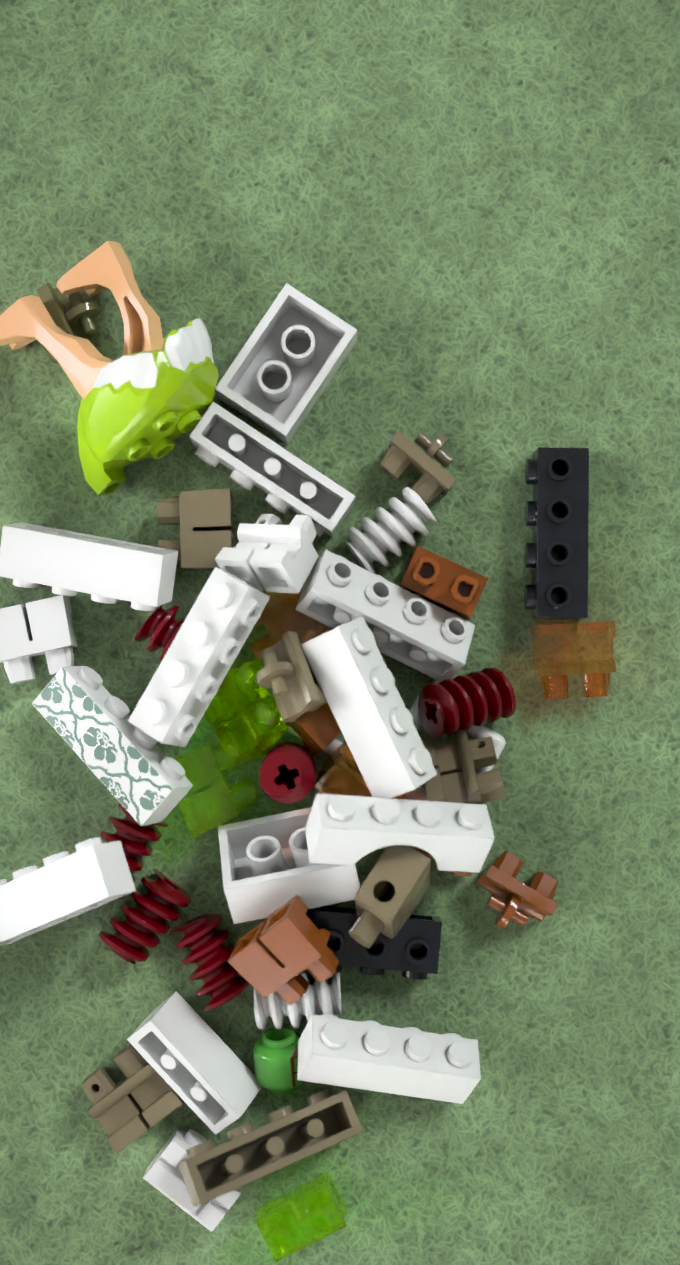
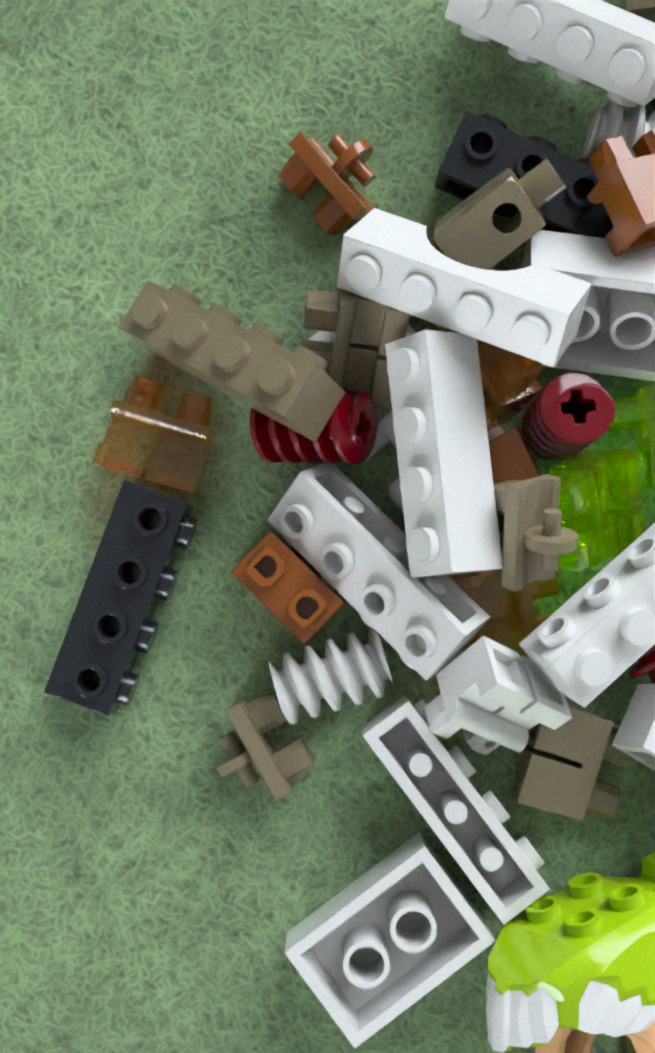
camera: 155 degrees left, 0 degrees up
(541, 727) = (234, 359): none -> dark tan brick

